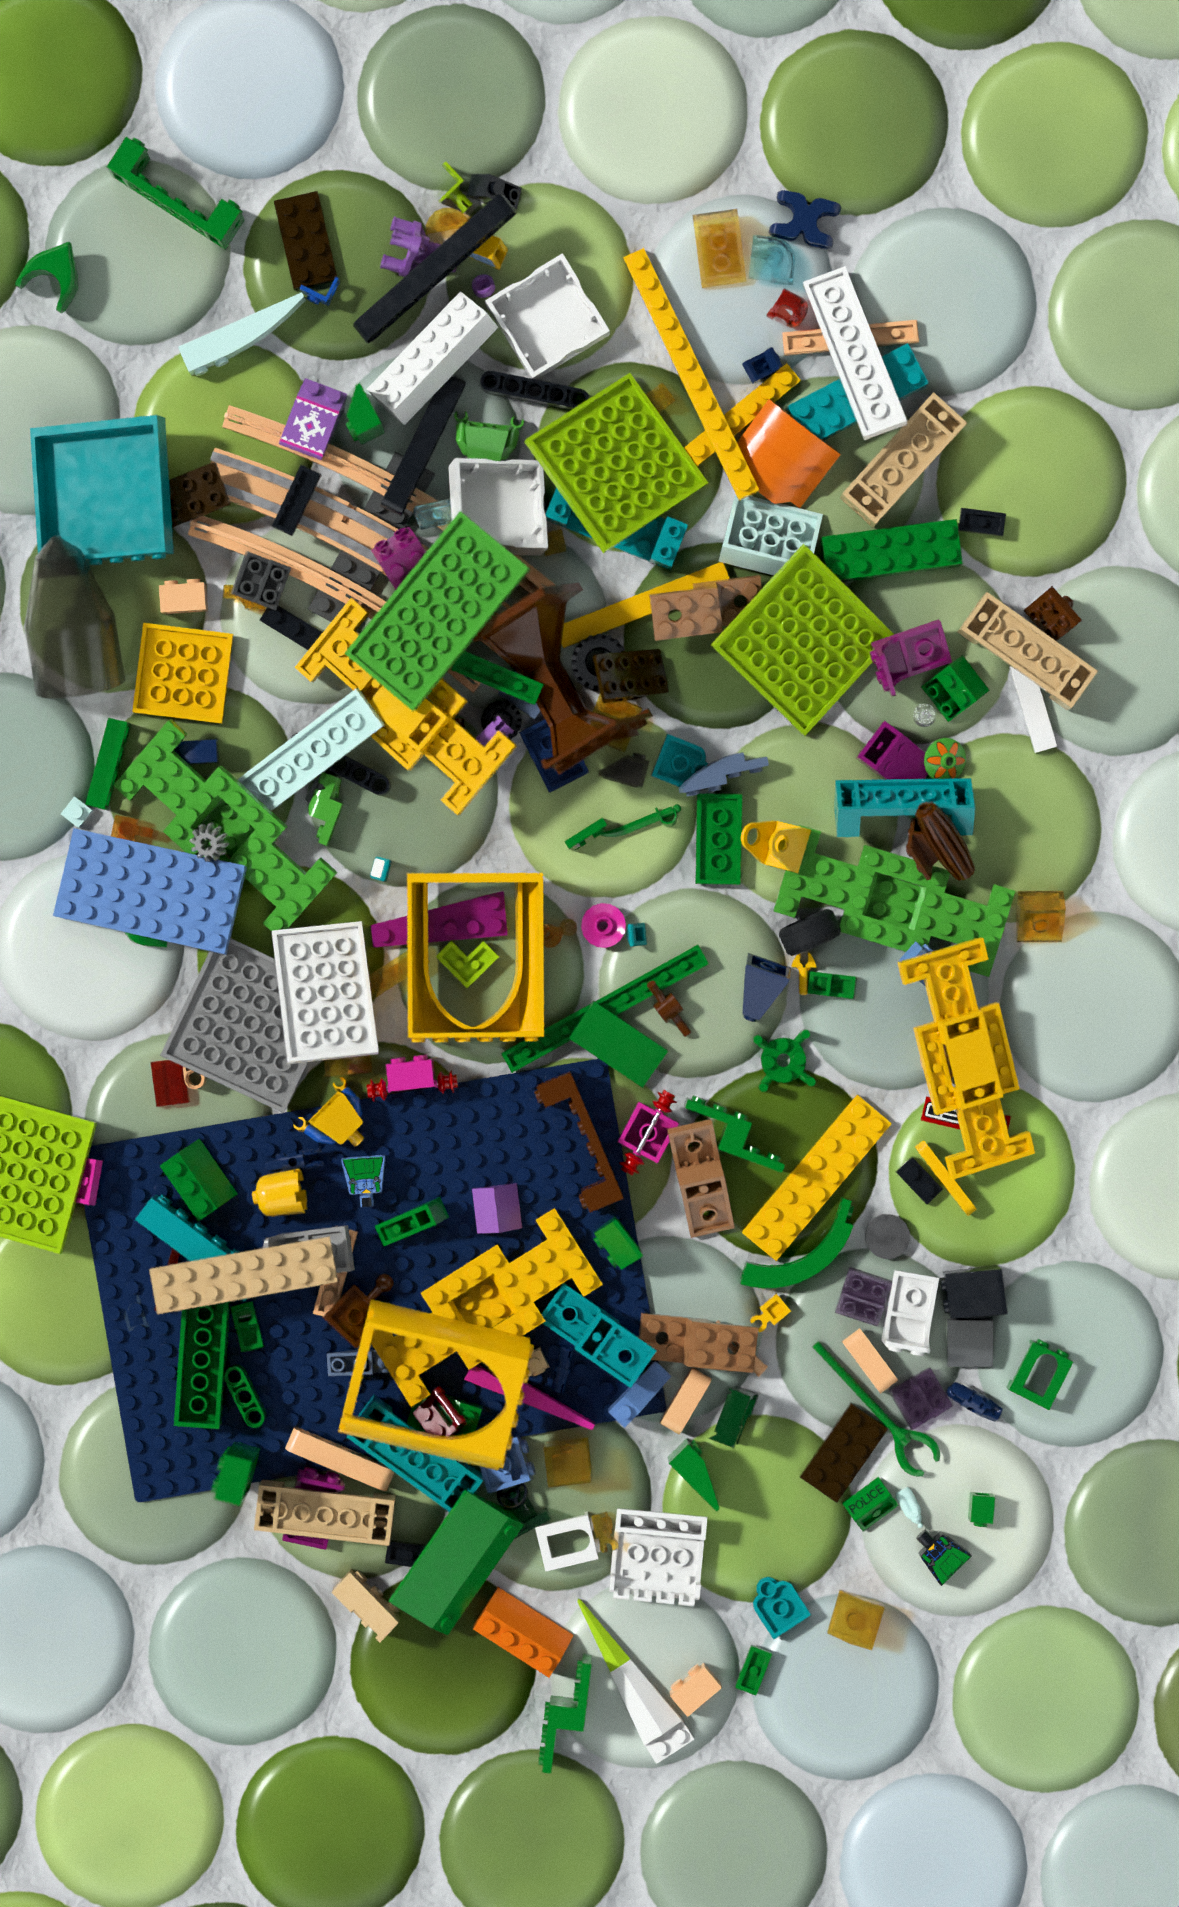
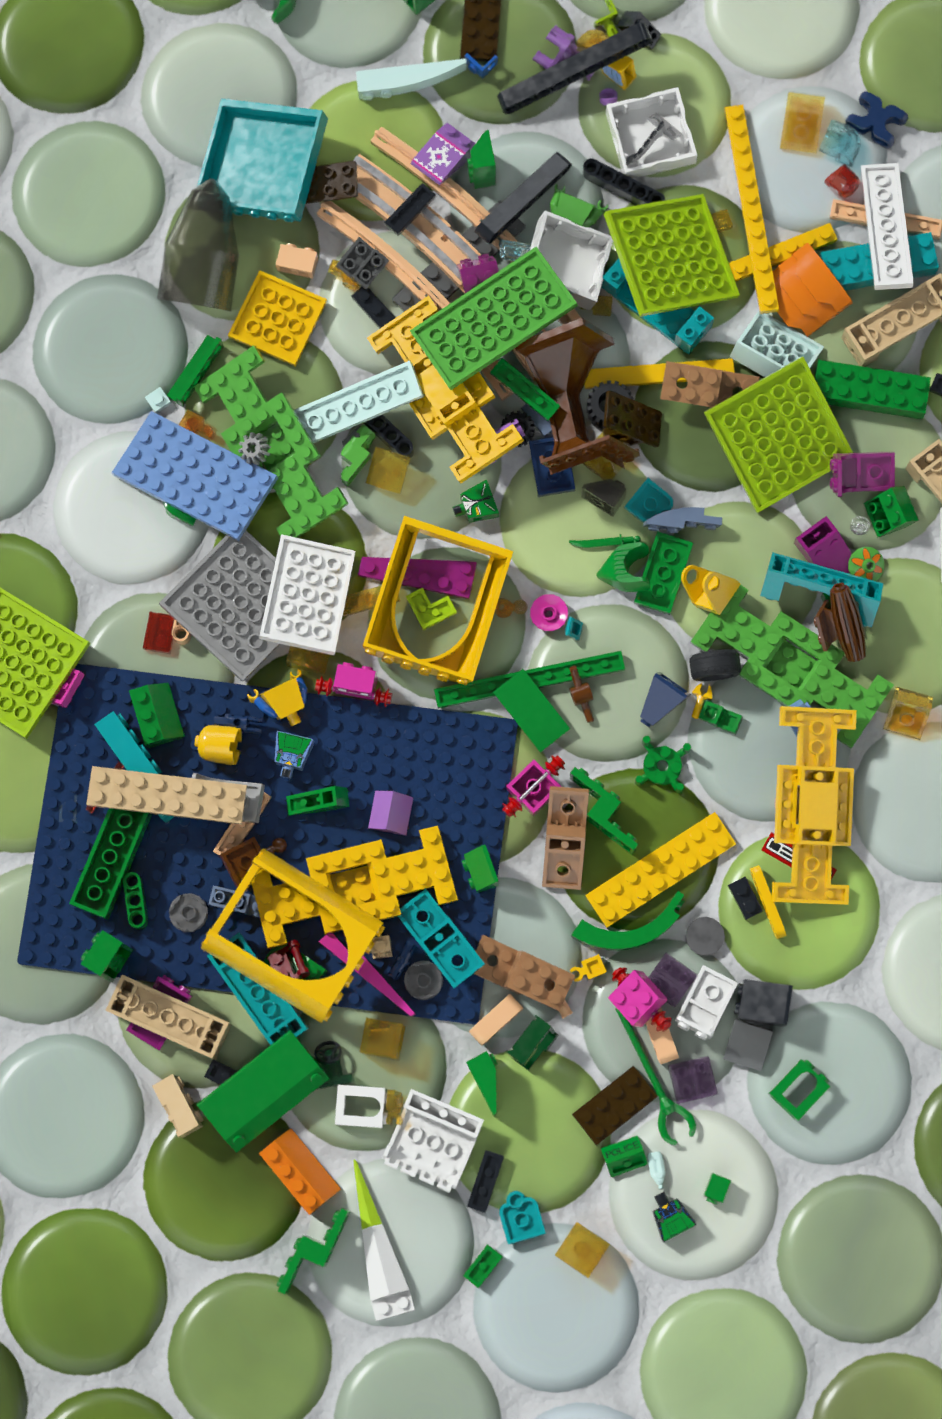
camera: 25 degrees right, 10 degrees down
(199, 751) = (270, 380): dark blue slope -> none
(247, 1327) = (156, 846): green slope -> none
(308, 1389) = (188, 912): none -> flat silver tile
(339, 1459) = (196, 977): light nougat beam -> none
(368, 816) = (388, 470): none -> clear yellow slope
(380, 869) = (384, 515): slope -> none
(432, 358) = (551, 136): white brick -> none
(482, 823) = (477, 503): none -> green torso
(515, 1470) = (334, 1031): medium blue plate -> none
(554, 316) = (655, 134): none -> light grey piece
(591, 1383) = (423, 980): none -> flat silver tile
(594, 830) = (551, 538): green piece -> none
(603, 1191) = (474, 729): reddish brown plate -> none
(640, 1394) = (459, 1000): medium blue slope -> none
(664, 853) = (616, 568): none -> green animal
(695, 1688) = (429, 1266): light nougat brick -> none
(728, 1578) = (485, 1181): none -> black plate
(762, 365) = (810, 218): dark blue bracket -> none
(836, 1333) = (639, 999): none -> dark pink brick
(974, 1401) = (737, 1096): dark blue hinge -> none

